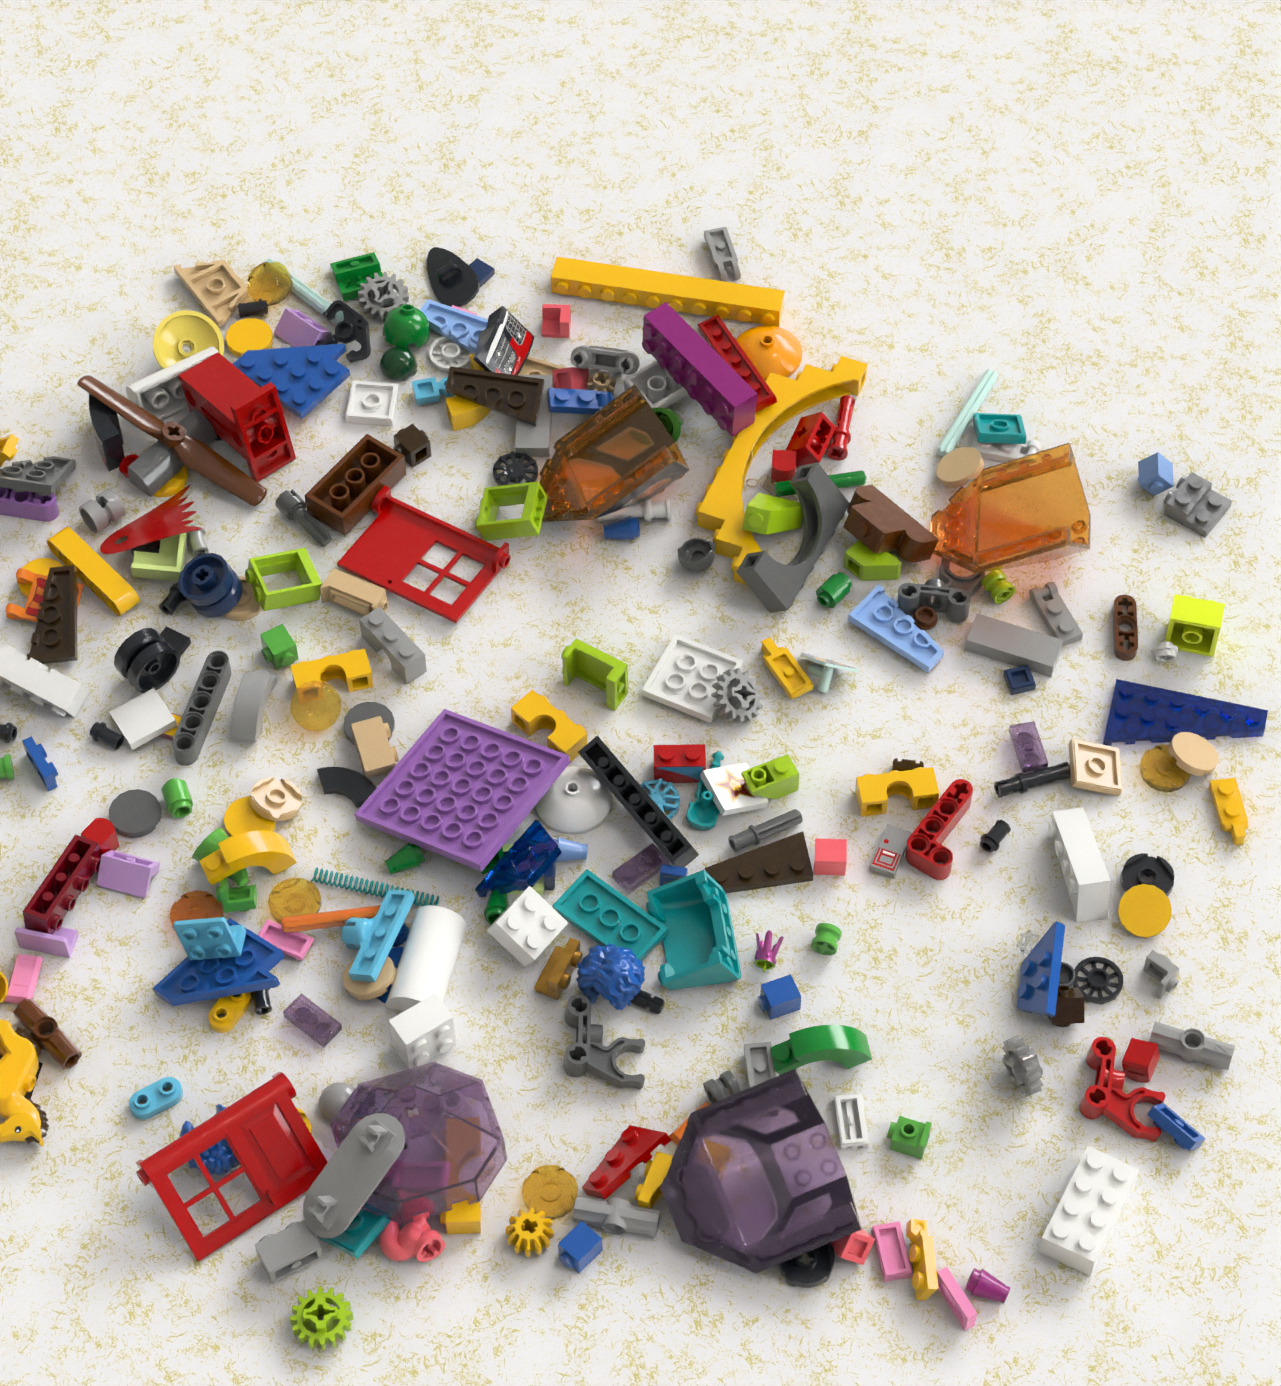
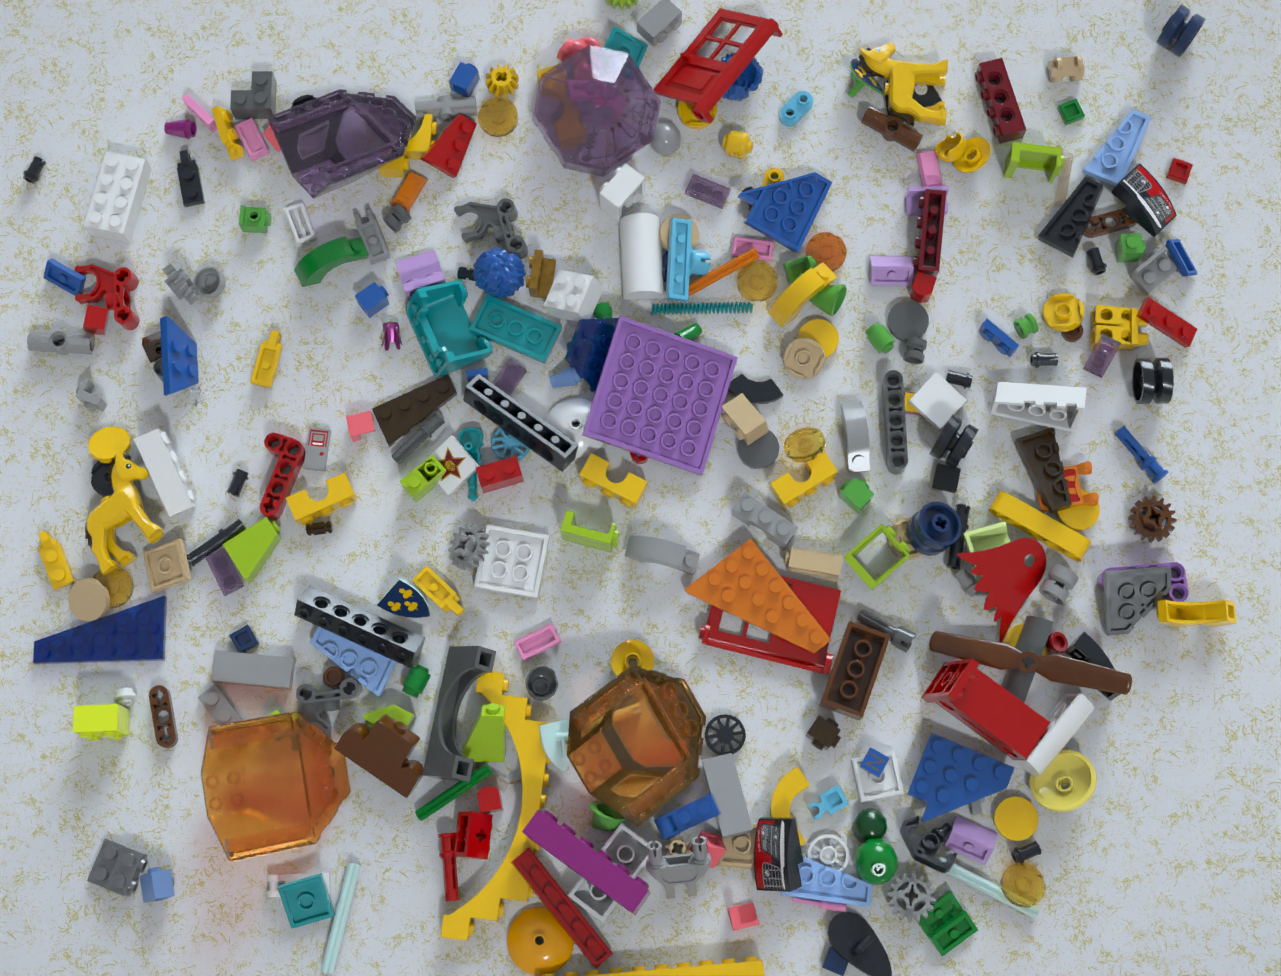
camera: 165 degrees right, 20 degrees up
(54, 1098) = (862, 78): none -> shield
(143, 774) = (915, 349): none -> dark grey wheel
(210, 938) = (800, 217): medium azure bracket -> none
(214, 288) = (1071, 866): tan wing -> none
(251, 1066) = (737, 144): none -> yellow head
(353, 1174) = (626, 55): light grey piece -> none
(370, 407) = (874, 762): none -> blue tile
(428, 578) = (755, 592): none -> orange wing
(501, 392) = (759, 799): dark brown wing -> none
(524, 638) = (662, 552): none -> light grey arch
(534, 502) = (691, 679): lime window -> none
(590, 545) = (632, 650): none -> yellow dish
(688, 598) = (537, 642): none -> bright pink tile
(694, 497) = (554, 742): none -> light aqua shield
(710, 1008) = (420, 272): none -> lavender bracket
(826, 939) = (348, 356): bright green wheel -> none
(830, 620) = (359, 626): none -> black brick
(871, 1290) = (257, 102): none -> dark grey brick
(929, 961) = (267, 361): none -> yellow hinge
(959, 467) = (333, 845): tan tile -> none
(984, 1068) = (209, 282): none -> light grey hair
(987, 1215) = (190, 180): none -> black hinge
(990, 759) = (253, 547): none -> lime slope
(1098, 980) = (139, 383): black wheel -> none
(1143, 828) = (117, 511): none -> yellow animal
(1205, 1277) = (34, 170): none -> black pin

